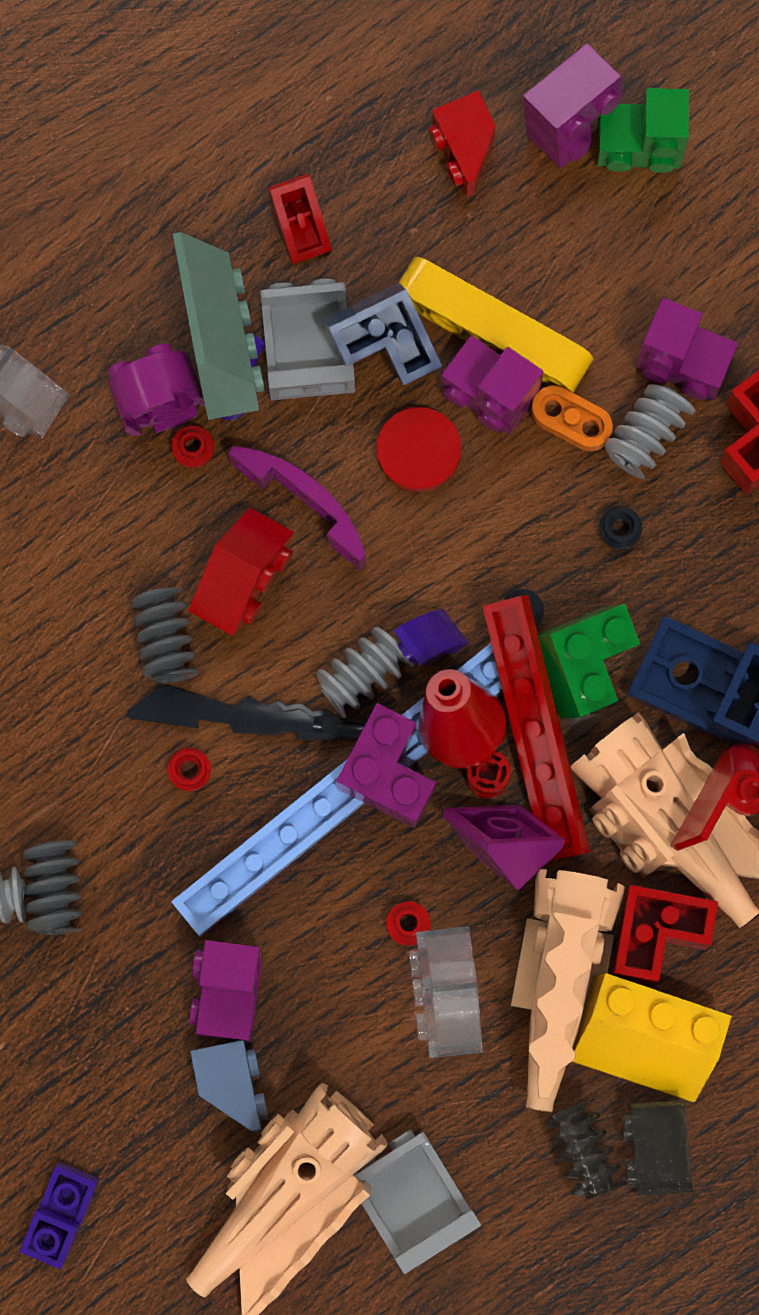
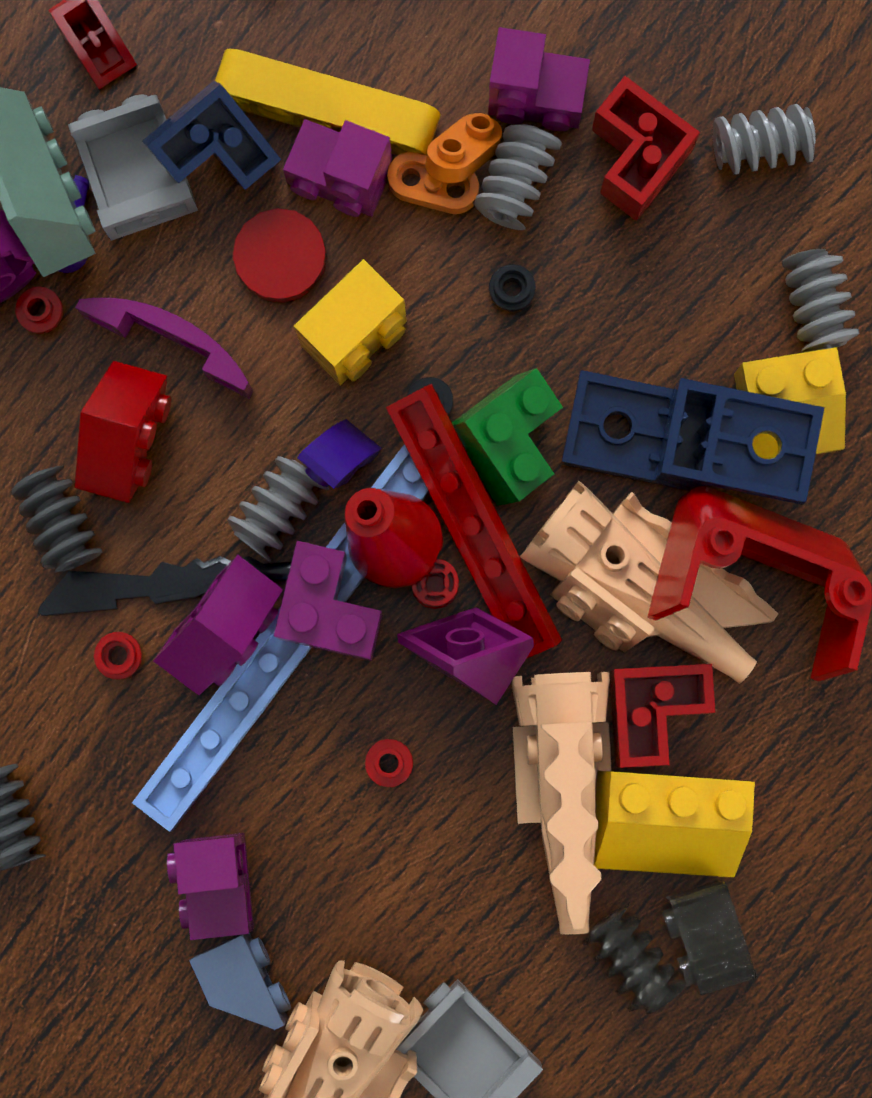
camera: 10 degrees left, 5 degrees up
(289, 765) = (221, 627): none -> magenta brick
(447, 992) = (446, 829): clear brick -> none
(470, 526) = (352, 323): none -> yellow brick
(606, 394) = (463, 148): none -> orange plate

